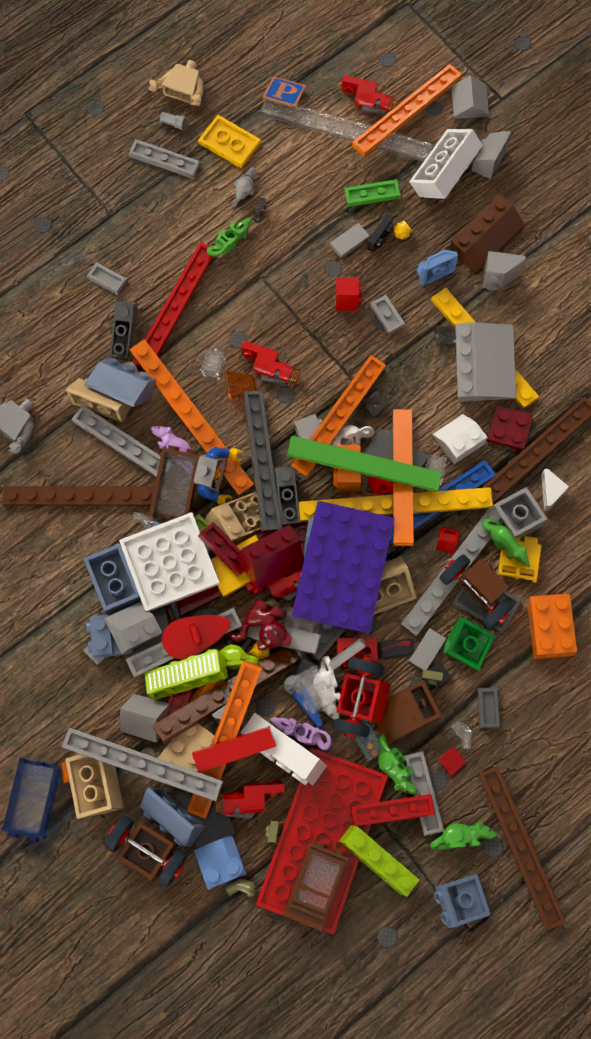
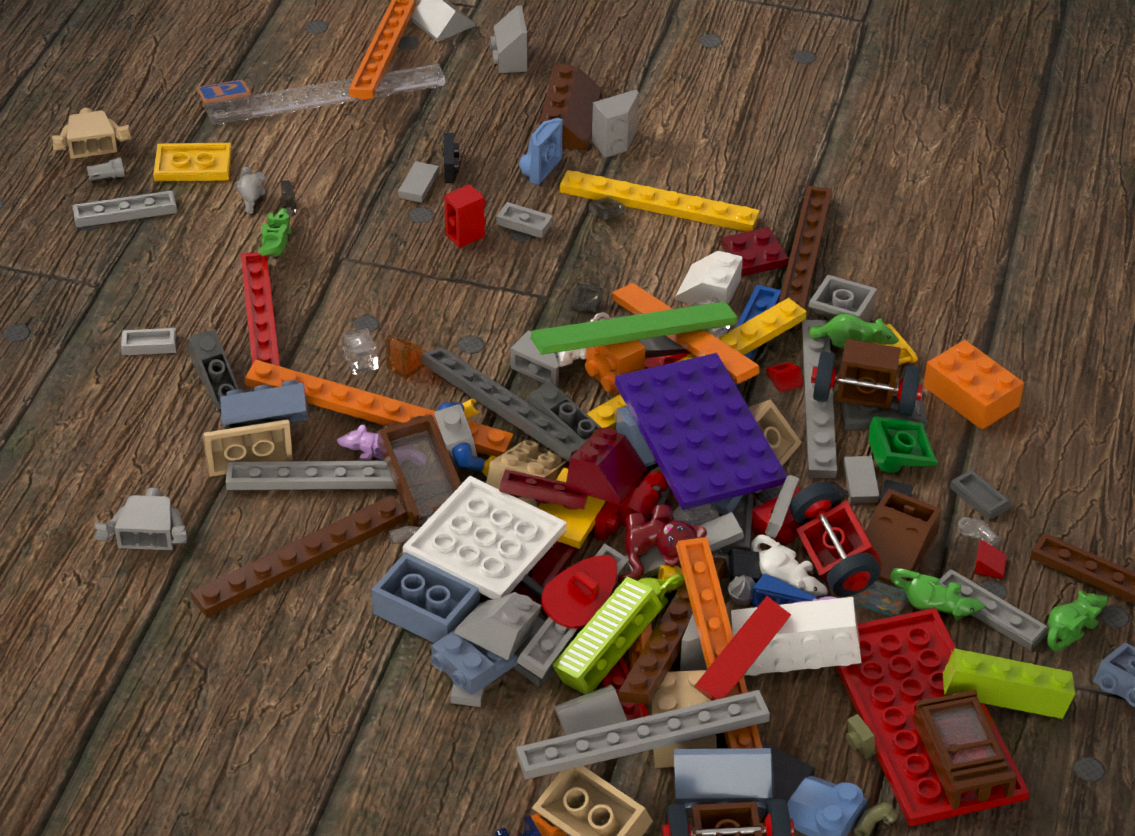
camera: 40 degrees left, 30 degrees down
(249, 801) = (798, 718): red plate -> none
(267, 365) = (427, 321): red plate -> none
(313, 690) = (776, 561): clear brick -> none
(343, 408) = (557, 313): orange plate -> none
(367, 95) = (323, 56): red plate -> none
(372, 193) = (406, 131): bright green plate -> none
(392, 810) = (976, 631): red tile -> none
(402, 230) = (473, 144): yellow plate -> none
(431, 677) = (897, 482): olive plate -> none
(446, 163) = (471, 67): white brick -> none
(485, 361) = (672, 204): light grey slope -> none
(552, 488) = (849, 268): white slope -> none

